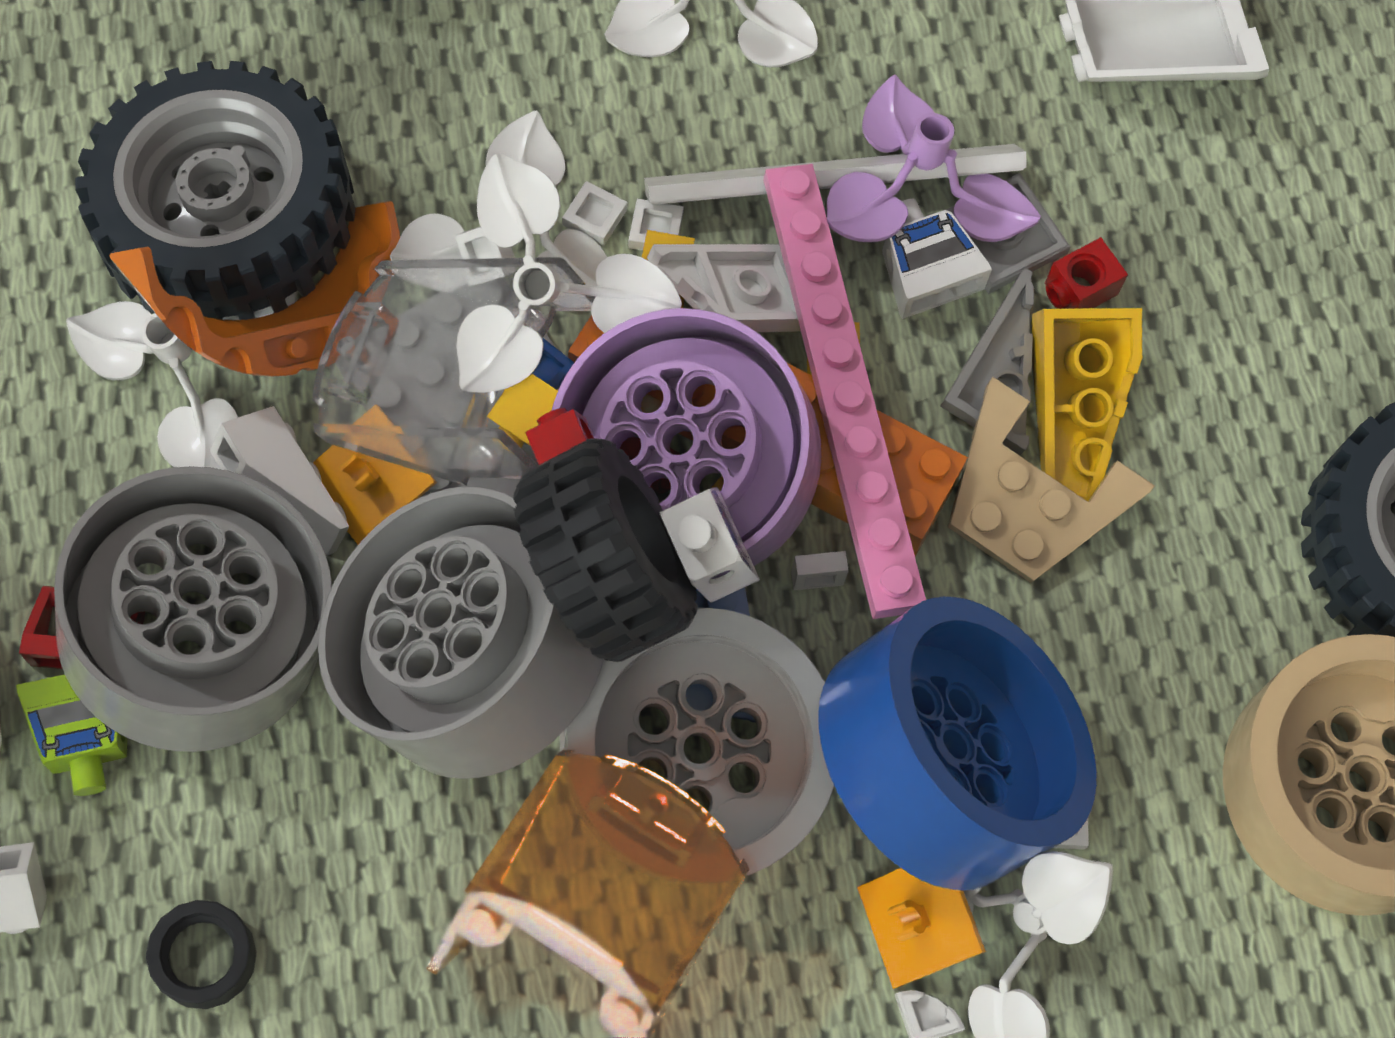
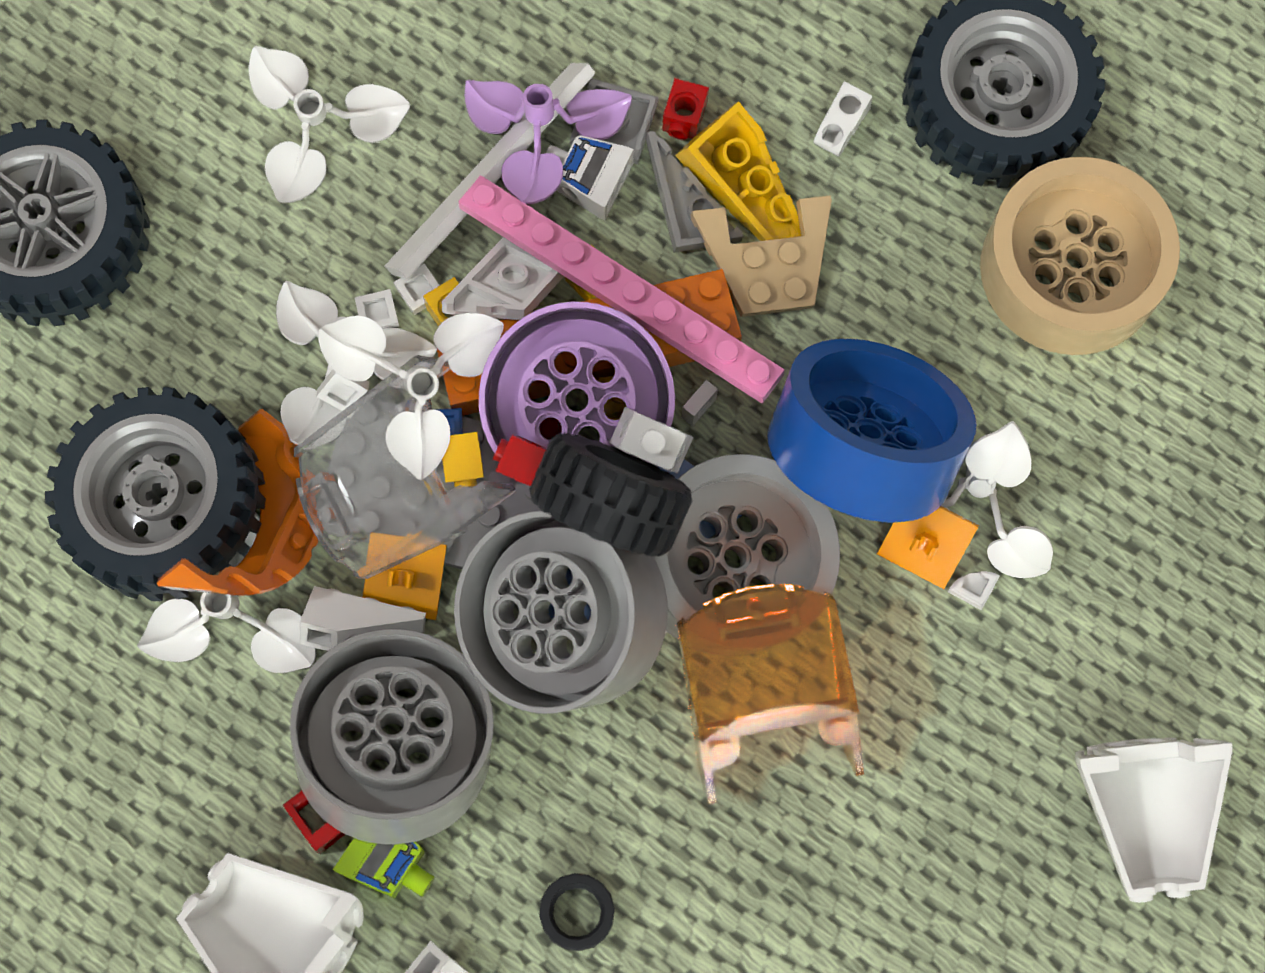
camera: 40 degrees left, 5 degrees up
(1242, 424) = (843, 118): none -> white leg

